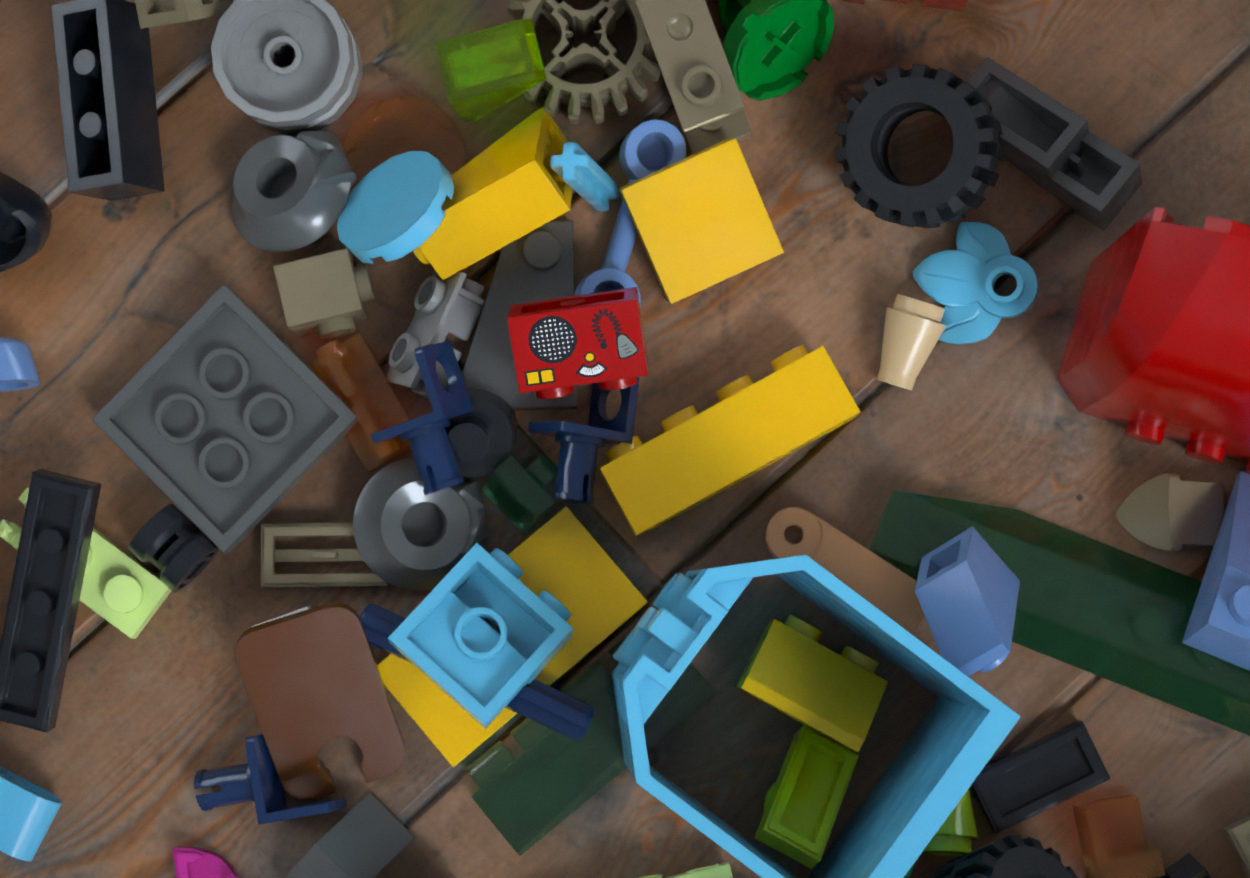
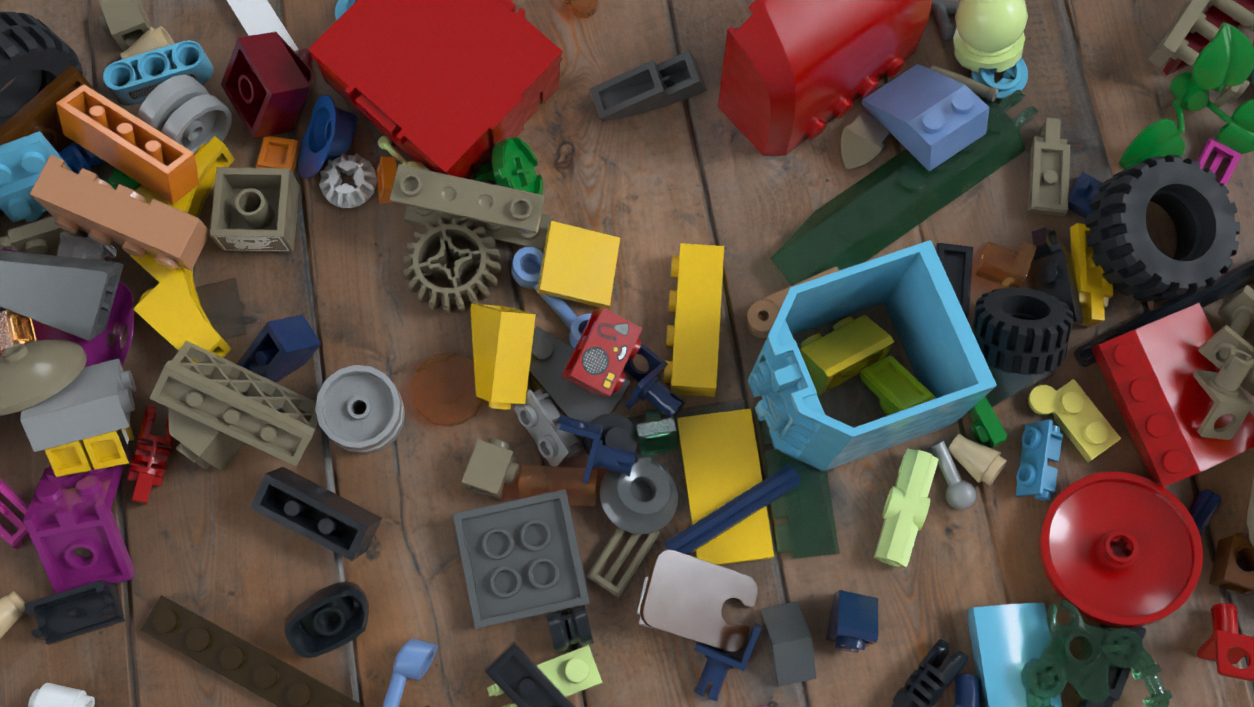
camera: 55 degrees left, 10 degrees down
(290, 189) = (426, 453): dark grey piece -> none
(395, 207) = (474, 400): medium azure tile -> none
(483, 633) = (719, 491): medium azure plate -> none
(490, 67) = (436, 312): clear neon green slope -> none
(585, 176) = (523, 297): medium azure axle -> none
(870, 128) = (595, 115): black tyre -> none
(908, 340) = (700, 205): tan cone -> none
(967, 279) = (691, 165): medium azure plate -> none
(968, 602) = (847, 246): medium blue slope -> none

